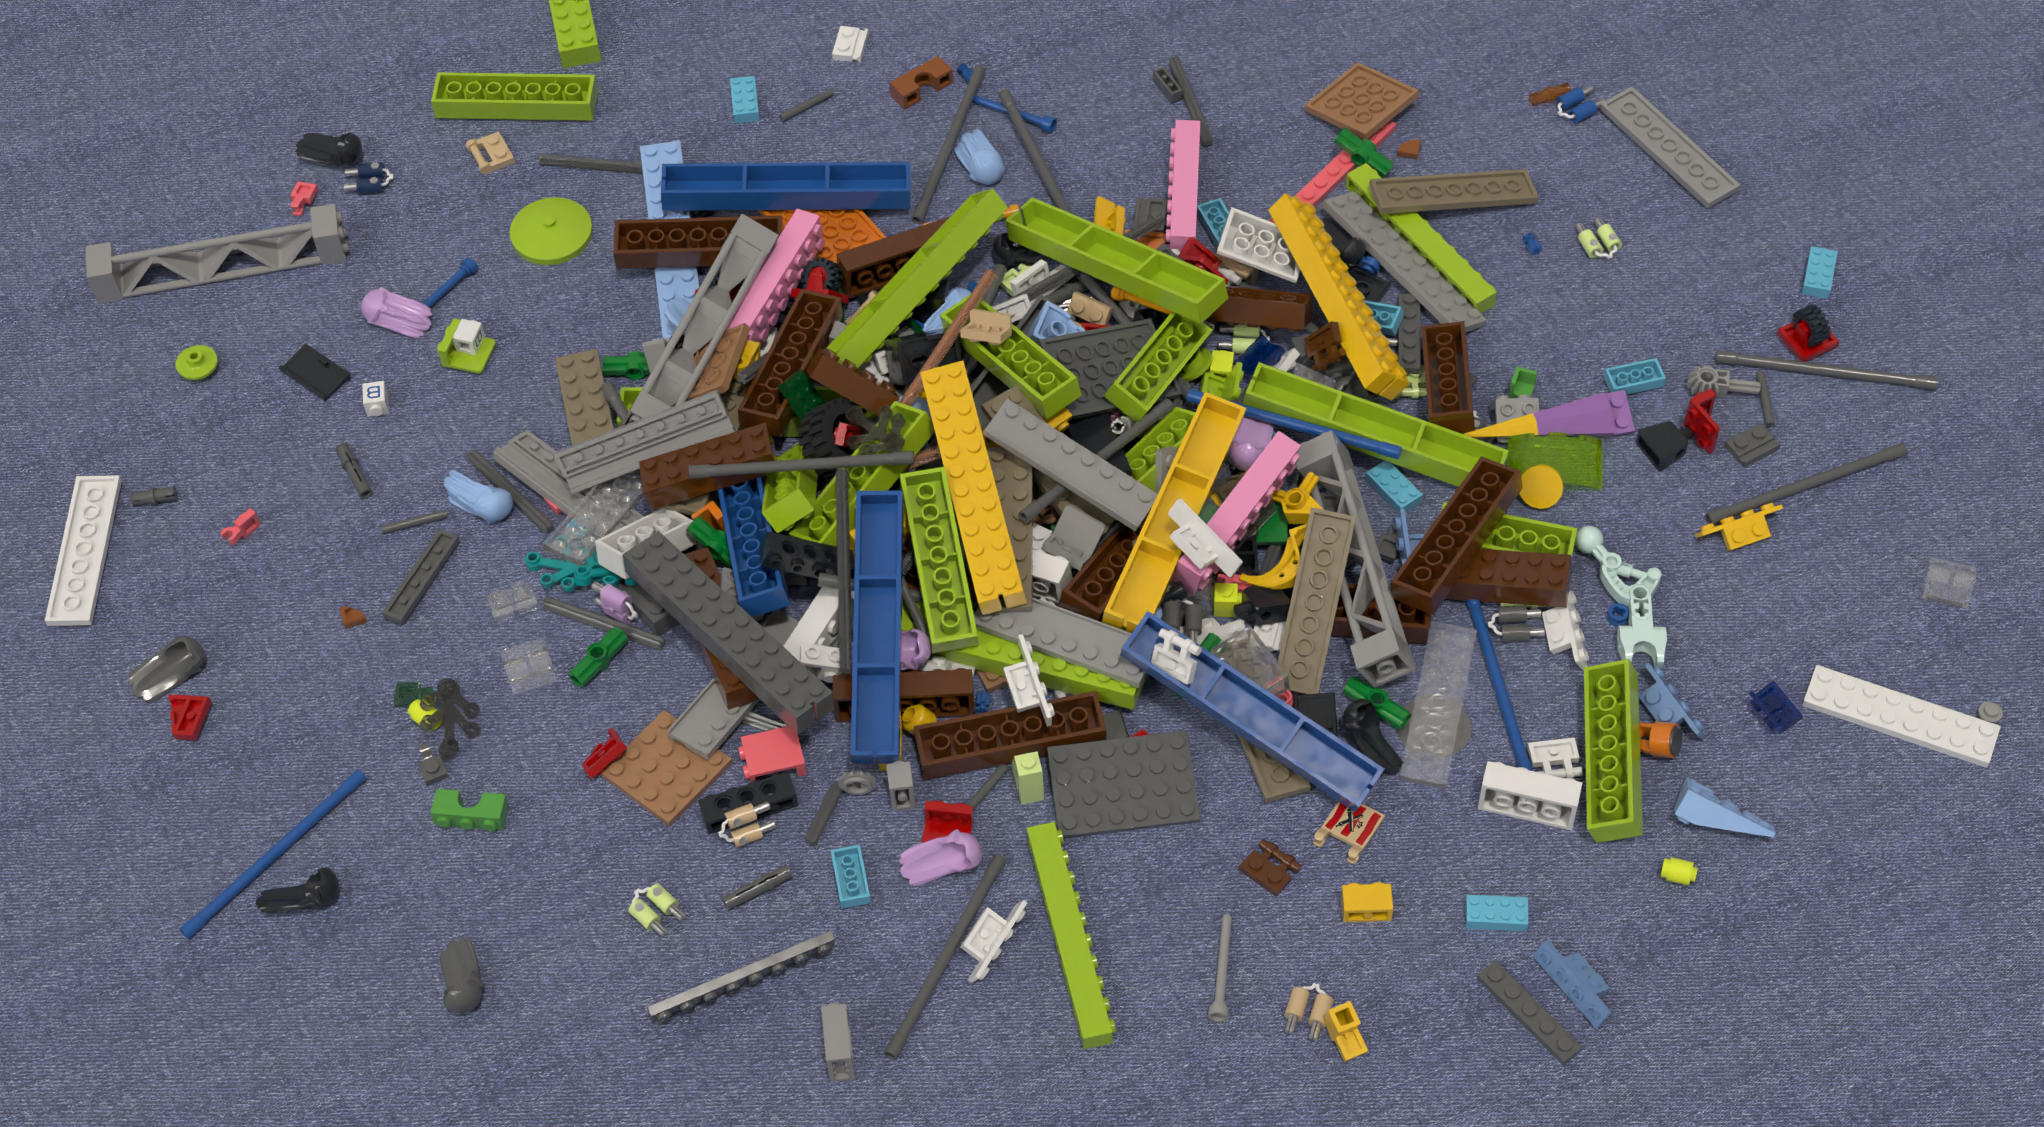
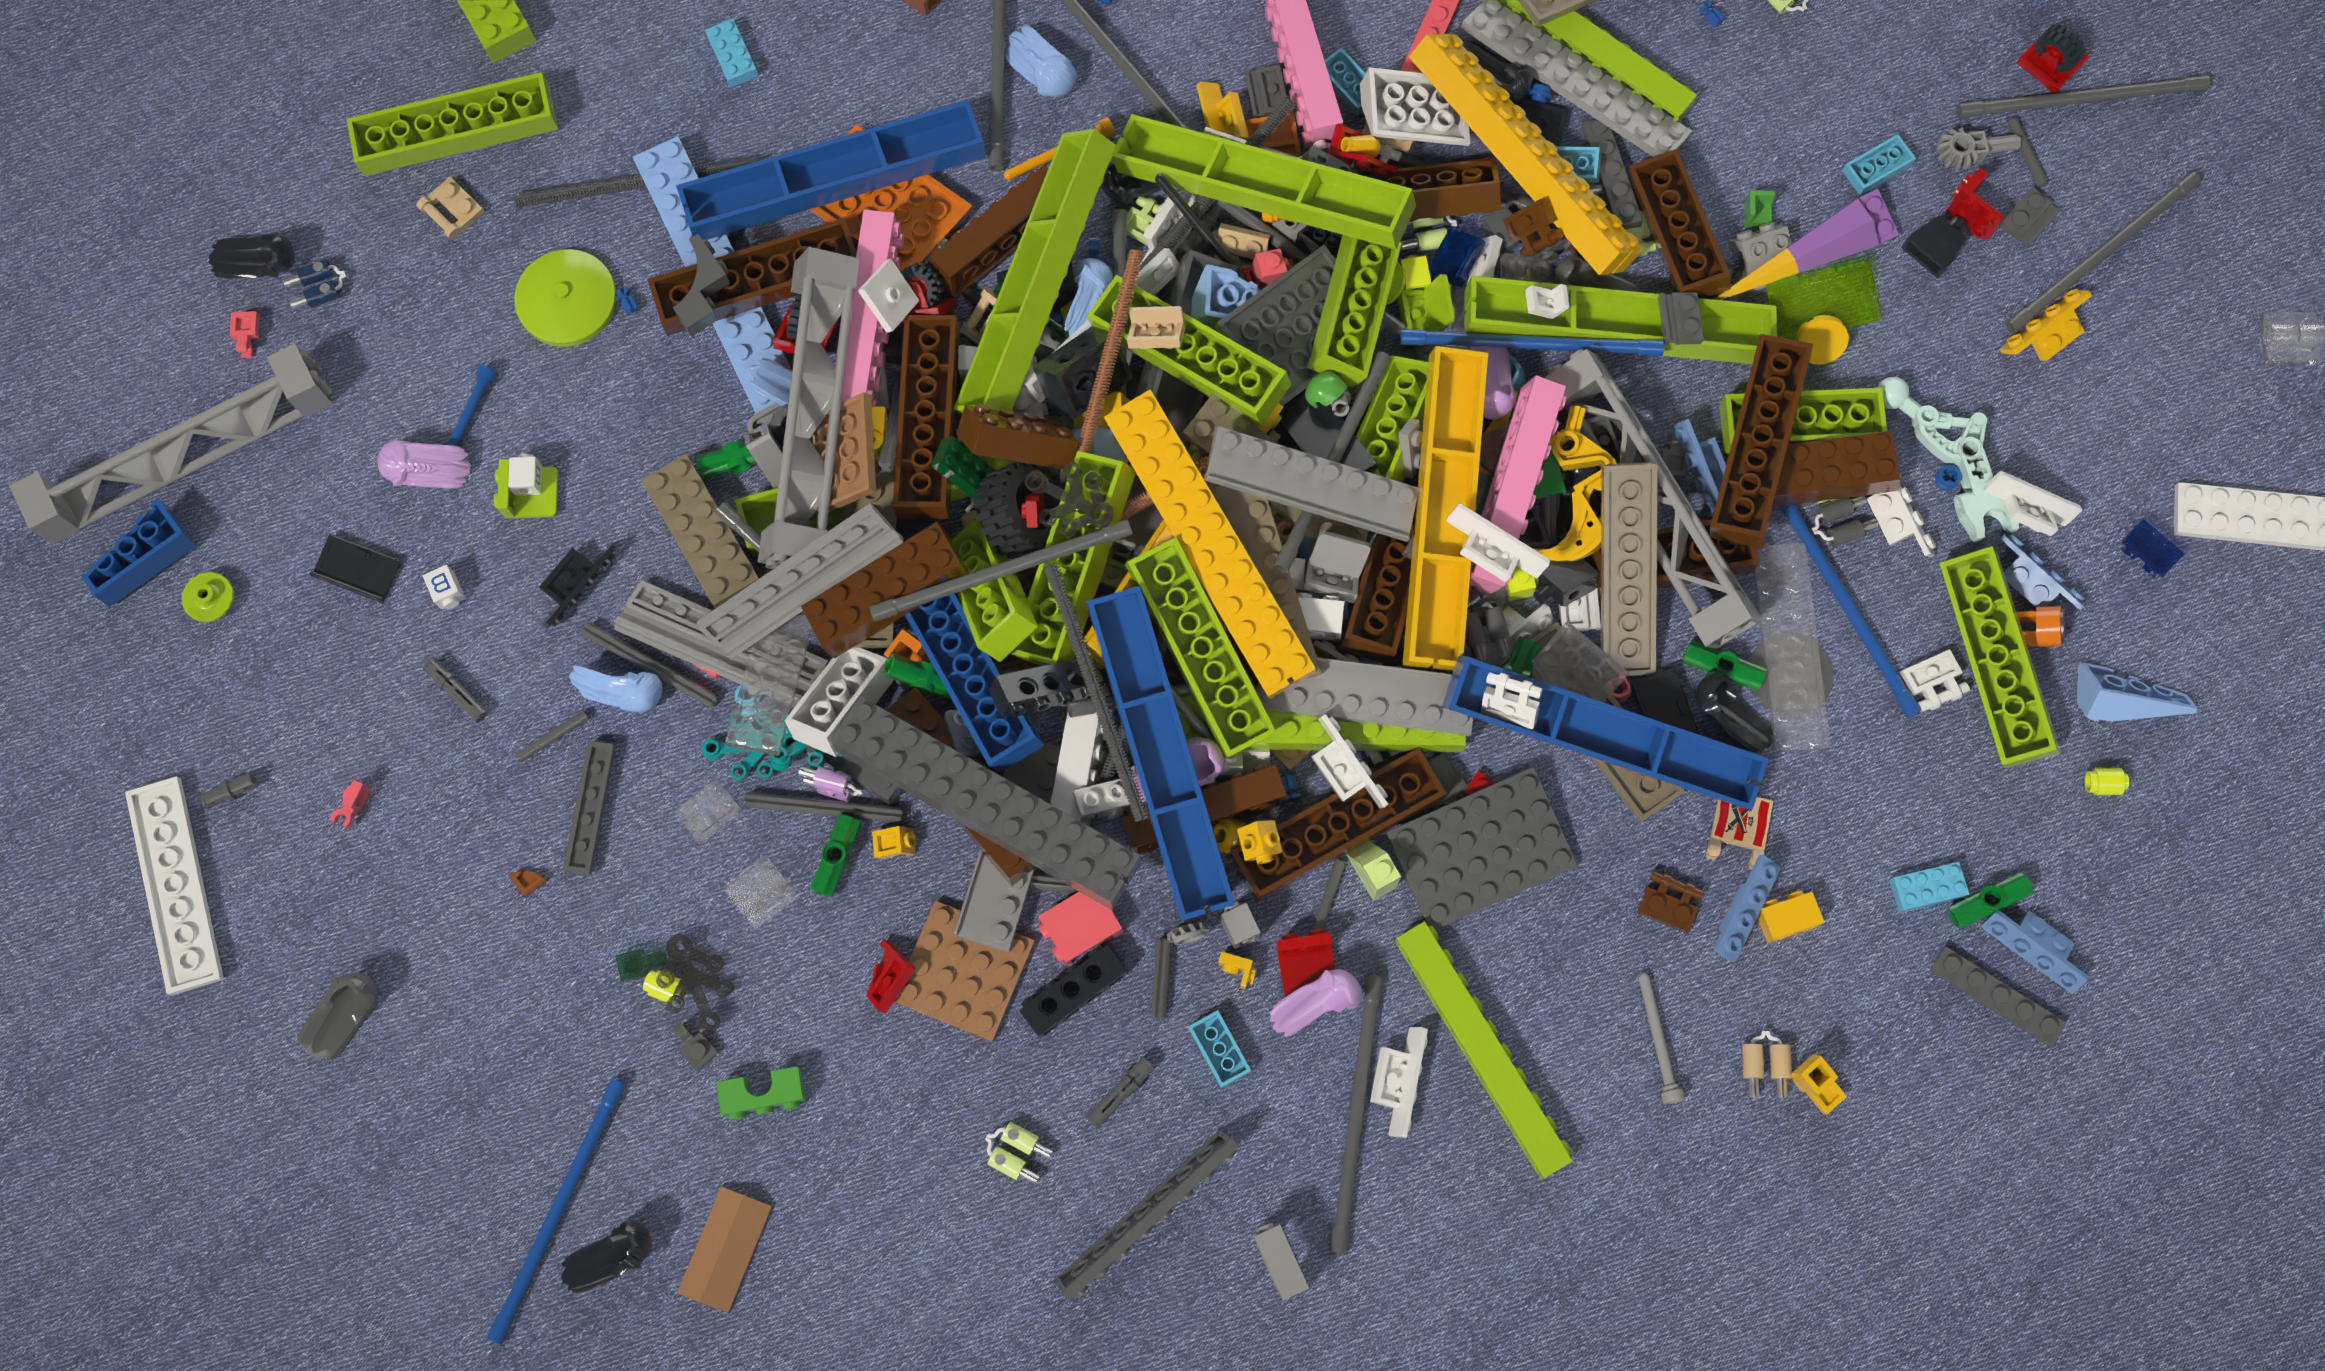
camera: 15 degrees left, 20 degrees up
(158, 321) = (138, 556): none -> blue wedge
(188, 715) = (386, 1066): red wing -> none
(393, 918) = (724, 1249): none -> medium nougat slope
(461, 976) = (831, 1300): dark grey hair -> none
(473, 415) = (569, 578): none -> black bracket
(597, 243) = (628, 301): none -> blue piece
(648, 659) = (894, 842): none -> yellow bracket
(661, 228) = (697, 308): none -> dark grey arch
(742, 816) = (1081, 1023): tan piece -> none
(792, 268) = (888, 295): none -> white plate
(806, 105) = (808, 40): dark grey piece -> none
(890, 819) = (1233, 964): none -> yellow bracket
(937, 718) = (1260, 841): none -> yellow brick
(1055, 281) = (1195, 221): none -> black piece
(1100, 318) = (1268, 267): none -> coral brick
(1110, 411) = (1324, 389): none -> bright green hair
(1210, 256) = (1362, 145): none -> yellow cone
(1311, 392) = (1547, 302): none -> white bracket
(1328, 880) = (1746, 908): none -> medium blue bracket
(1393, 487) = (1656, 382): medium azure piece -> none
(1422, 435) = (1680, 318): none -> dark grey plate
(1529, 795) = (1928, 738): white brick -> none
(1545, 930) = (2005, 893): none -> green piece
(1678, 643) = (2031, 504): none -> white bracket

